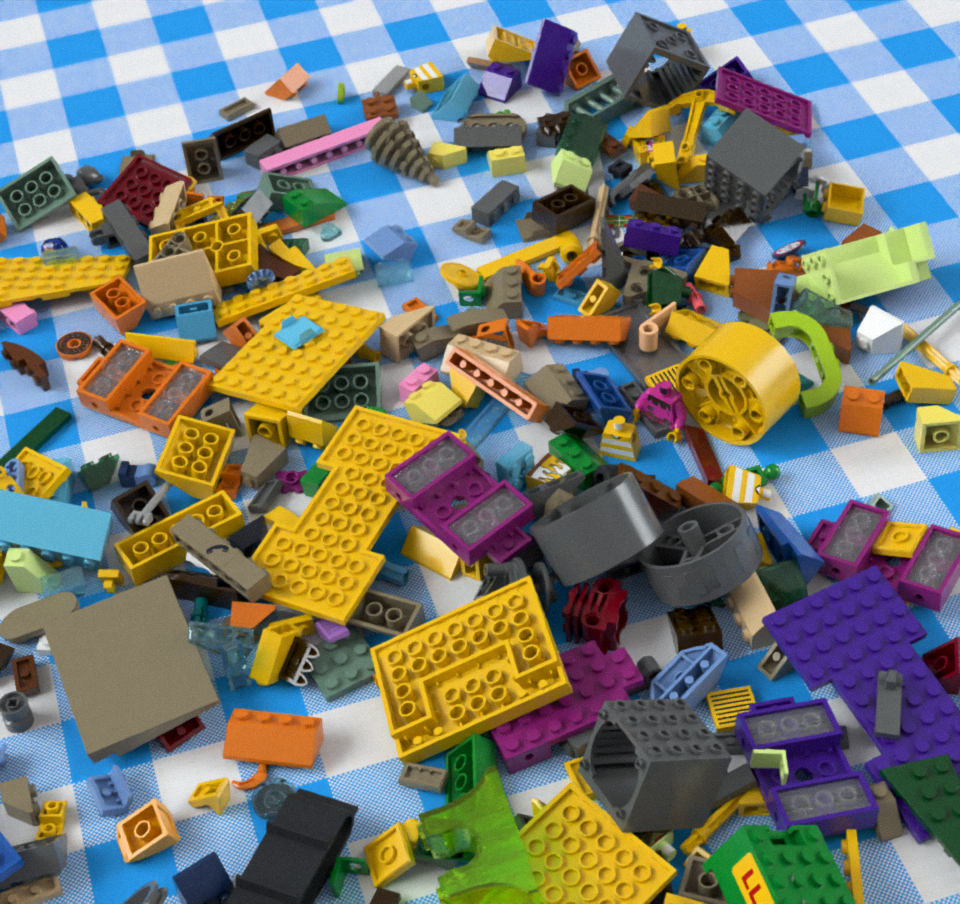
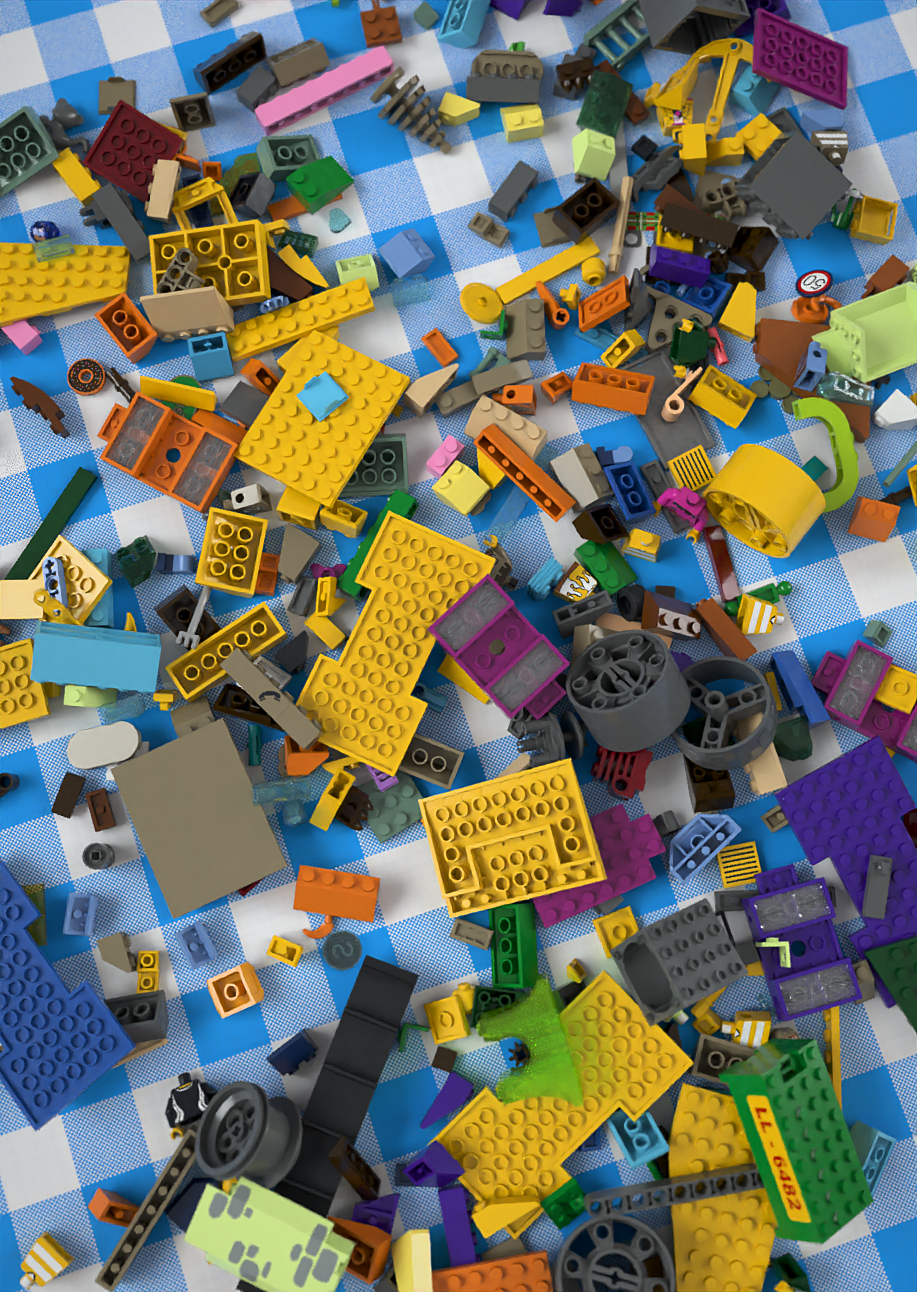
camera: 10 degrees left, 35 degrees up
(289, 492) = (326, 601): none -> yellow slope

